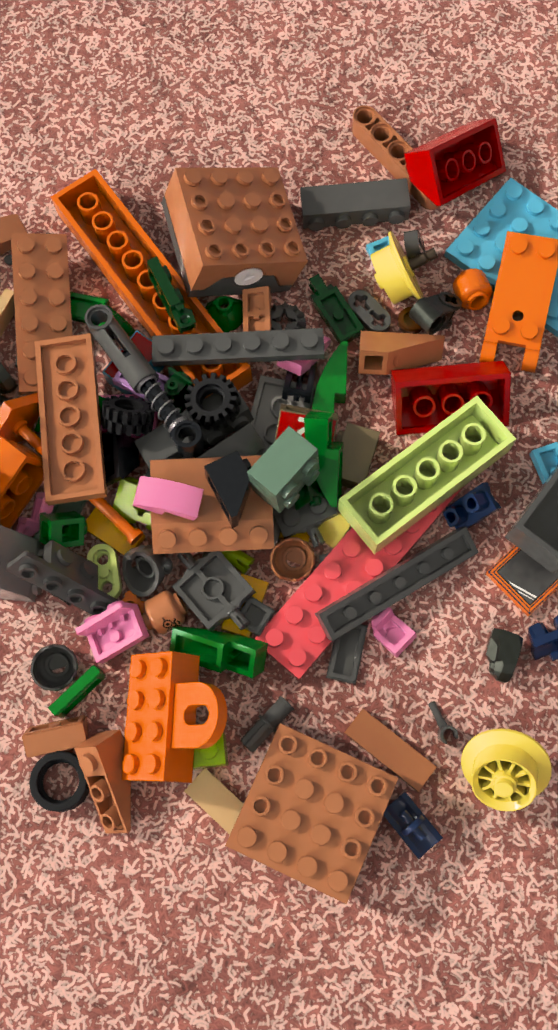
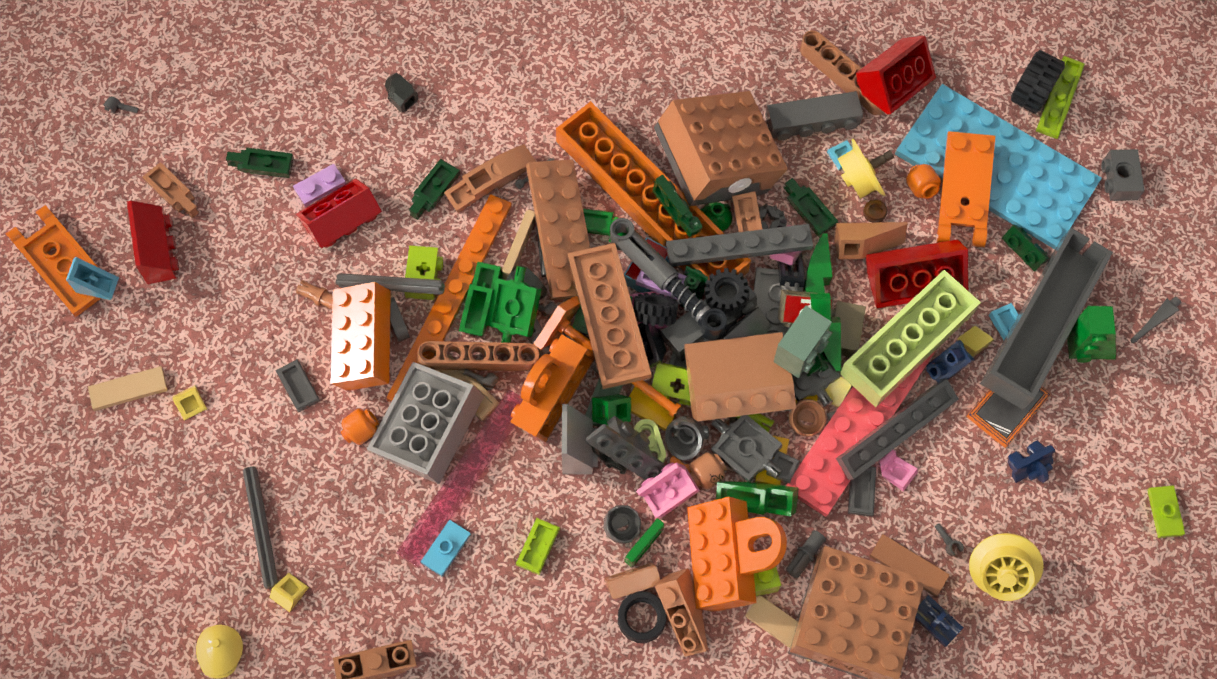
camera: 15 degrees left, 5 degrees down
(30, 526) = (586, 391): bright pink slope -> none
(168, 496) = (707, 372): bright pink slope -> none
(230, 484) = (757, 358): black slope -> none
(373, 308) = (841, 206): dark grey beam -> none
(413, 243) = (871, 147): dark grey beam -> none
(435, 311) = (897, 202): pearl dark grey piece -> none
(503, 653) = (990, 478): pearl dark grey rock -> none
(508, 483) = (975, 340): none -> light yellow slope

